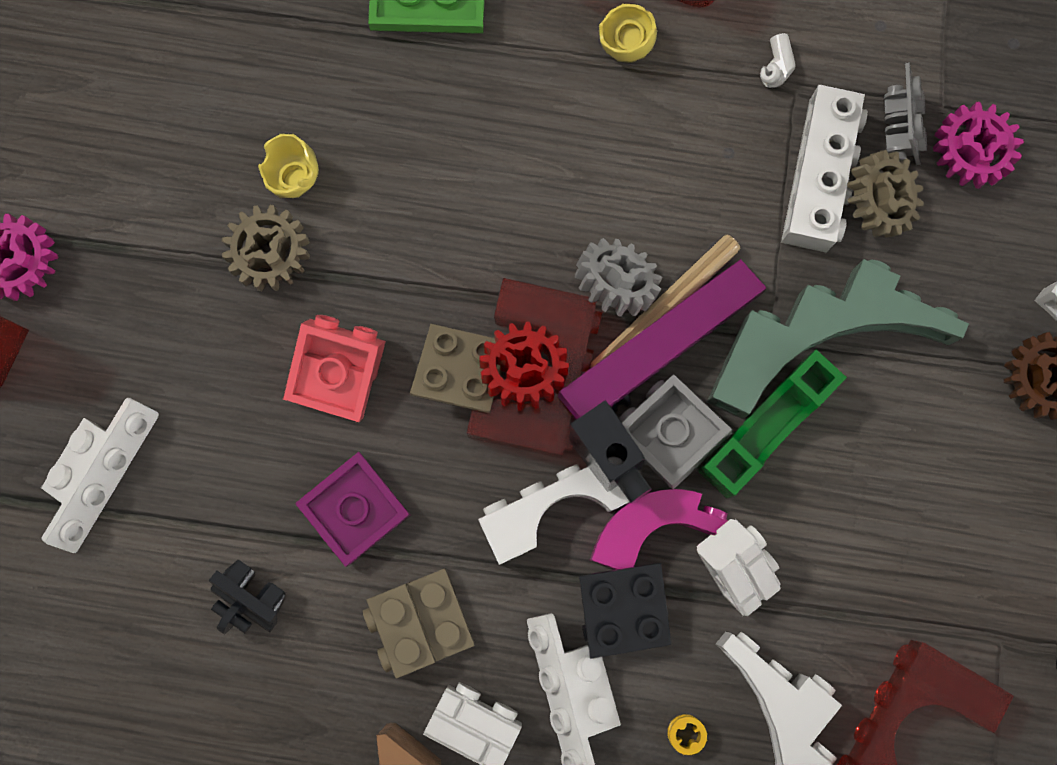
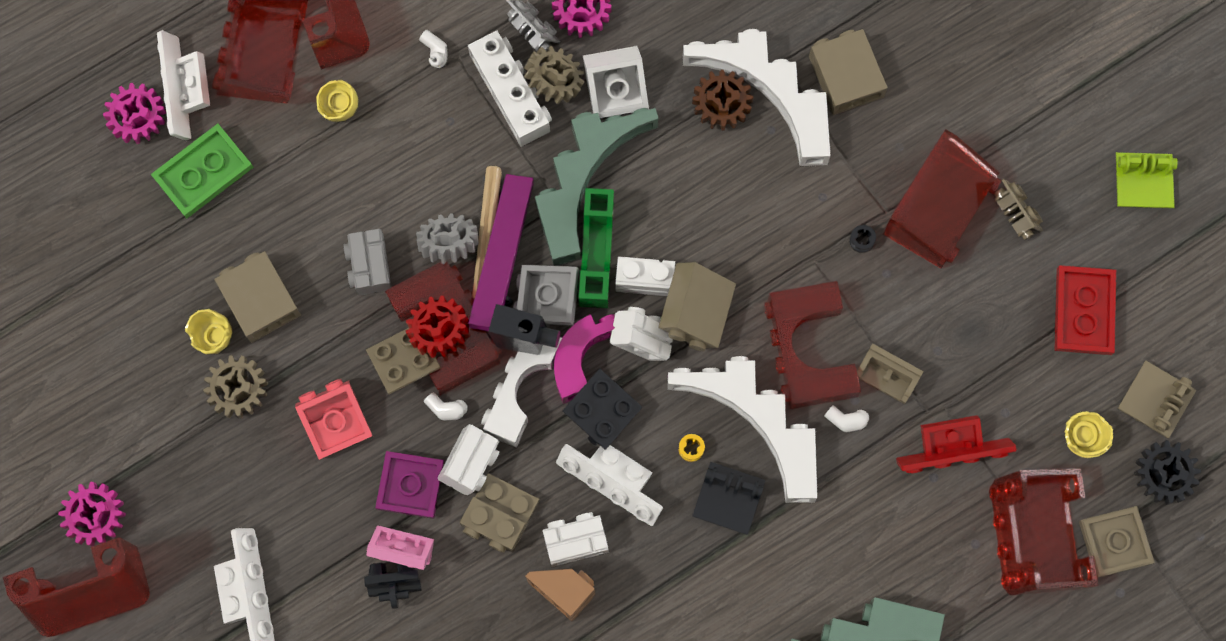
camera: 40 degrees left, 5 degrees down
(280, 572) = (400, 547): none -> bright pink bracket
(369, 171) = (257, 296): none -> dark tan brick
(435, 540) = (469, 460): none -> white brick
(459, 461) = (446, 410): none -> white arm
(514, 231) = (368, 262): none -> light grey brick
(798, 501) = (644, 276): none -> white brick
(828, 586) = (697, 306): none -> dark tan brick
(948, 257) = (616, 81): none -> white slope

